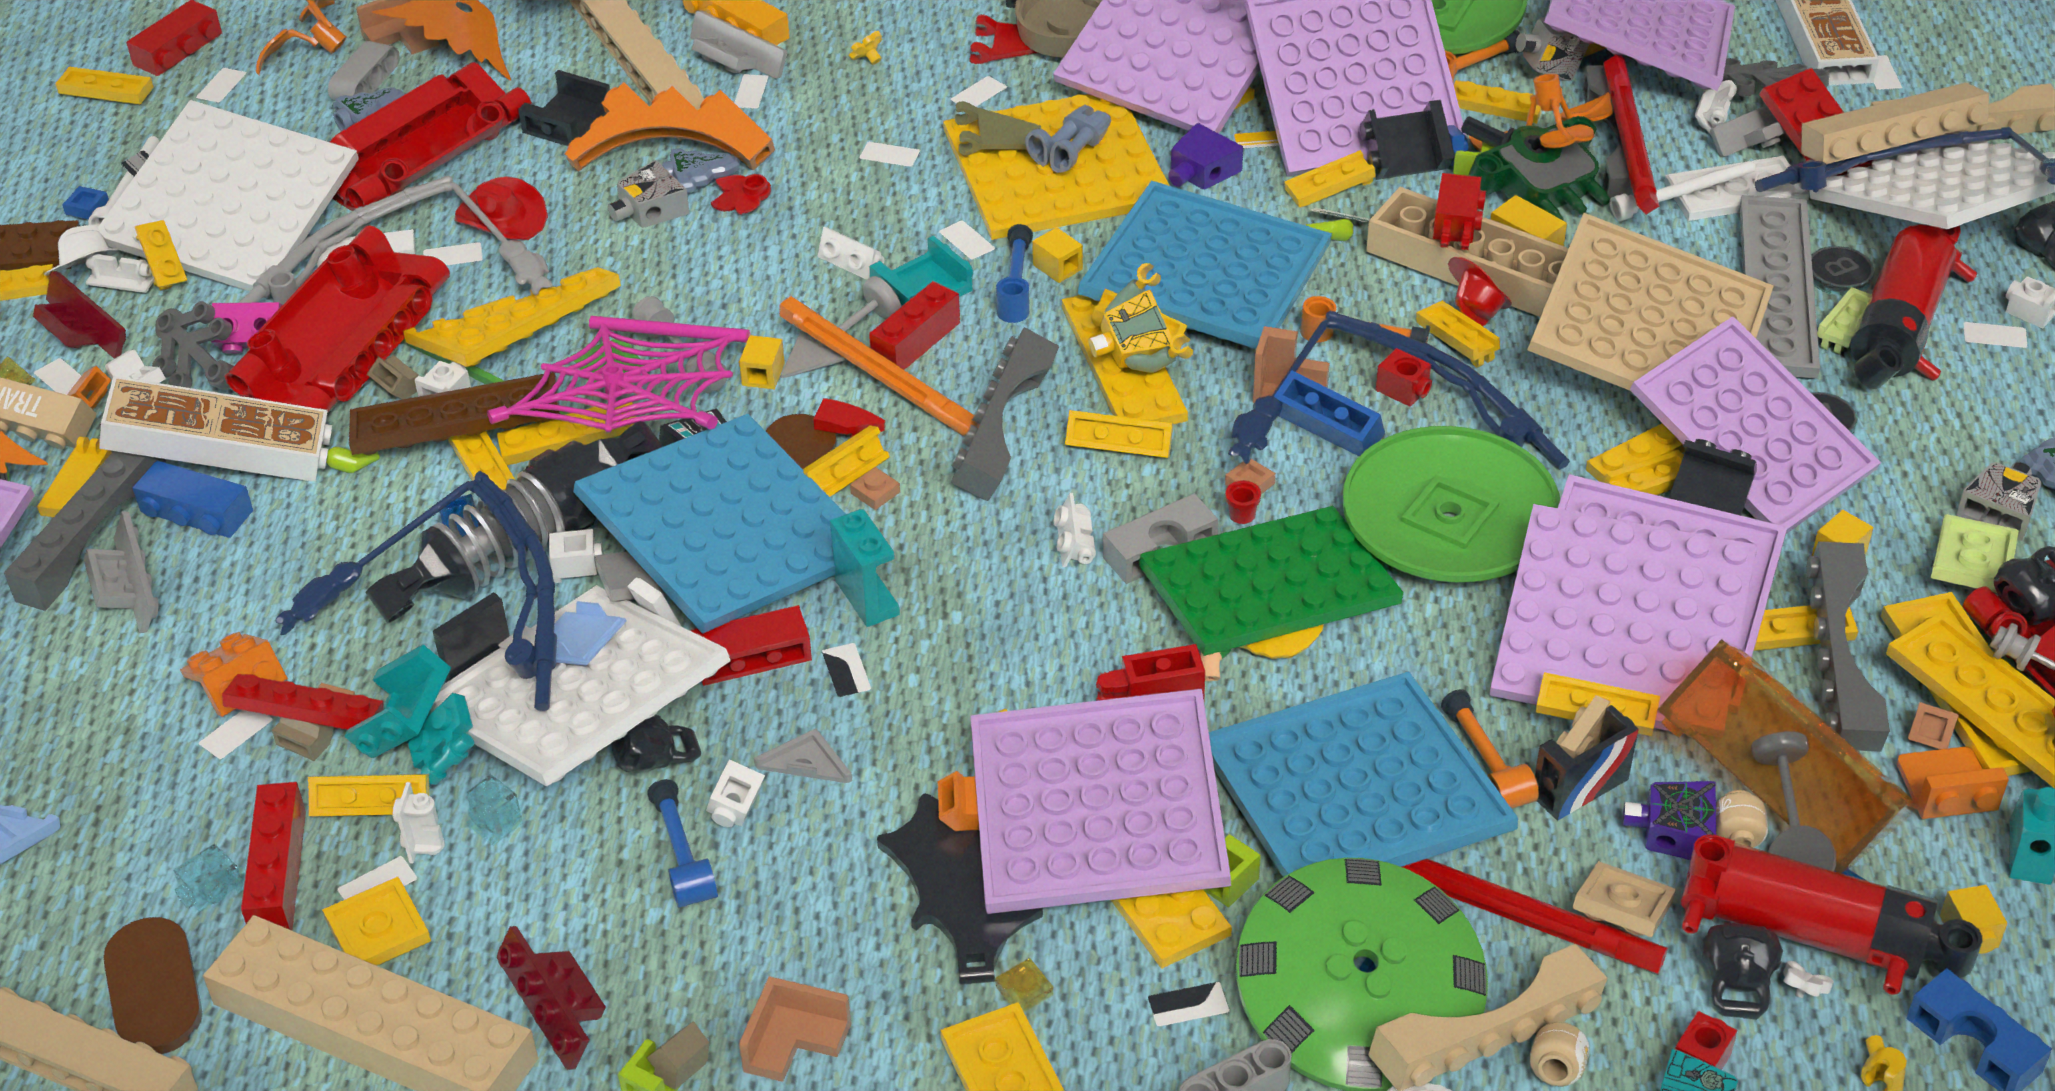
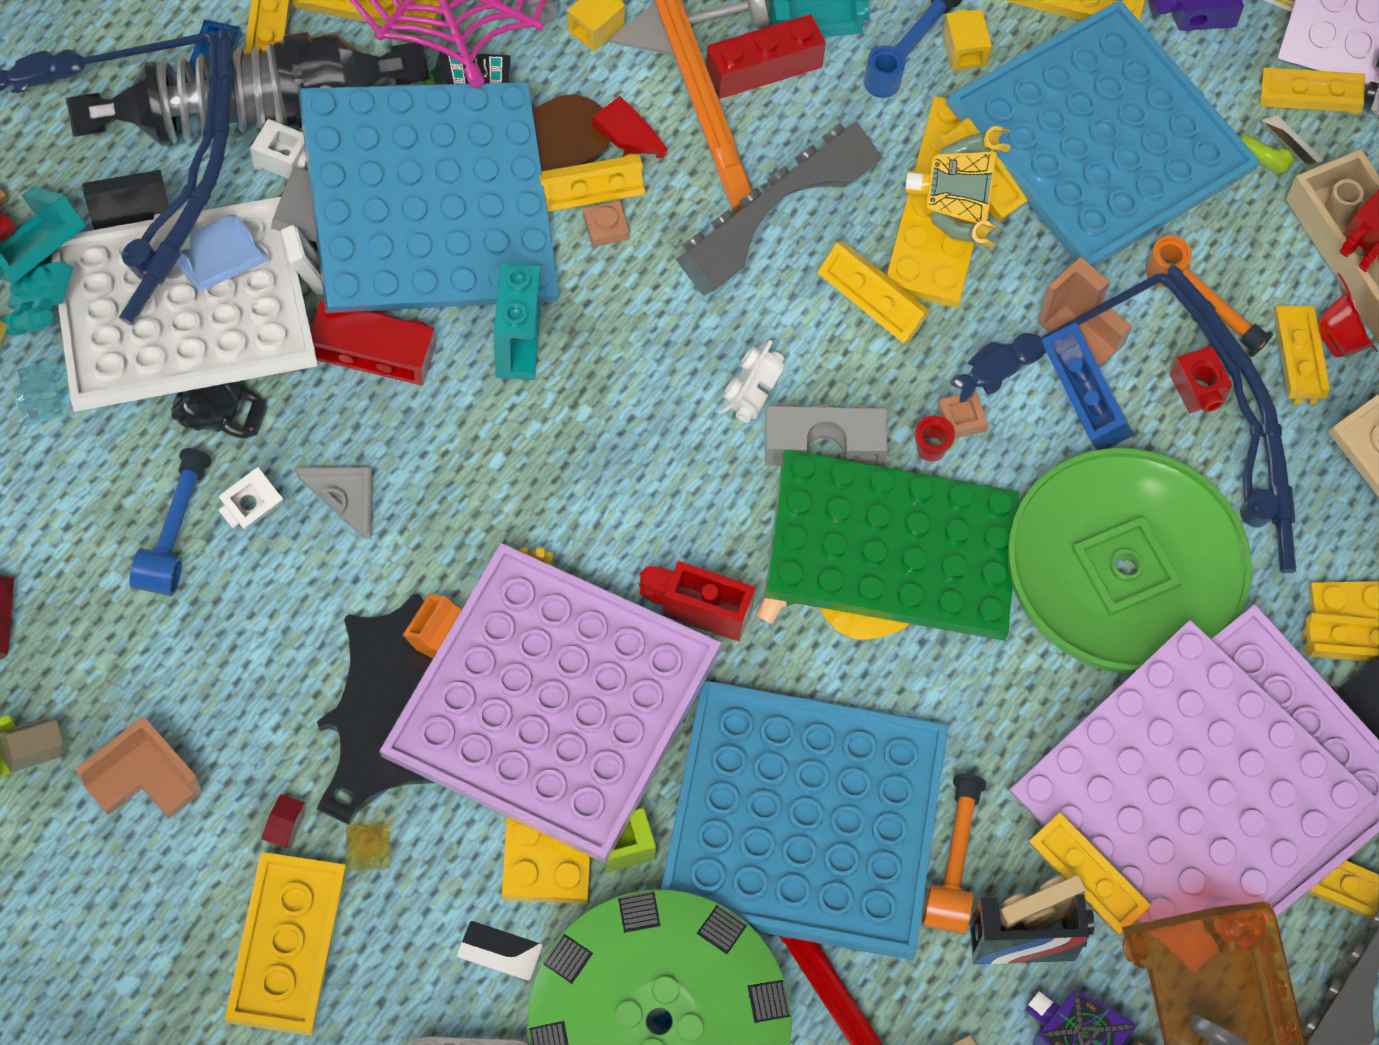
camera: 25 degrees right, 20 degrees up
(846, 670) = (445, 414): sticker -> none
(941, 1002) = (284, 821): none -> dark red piece

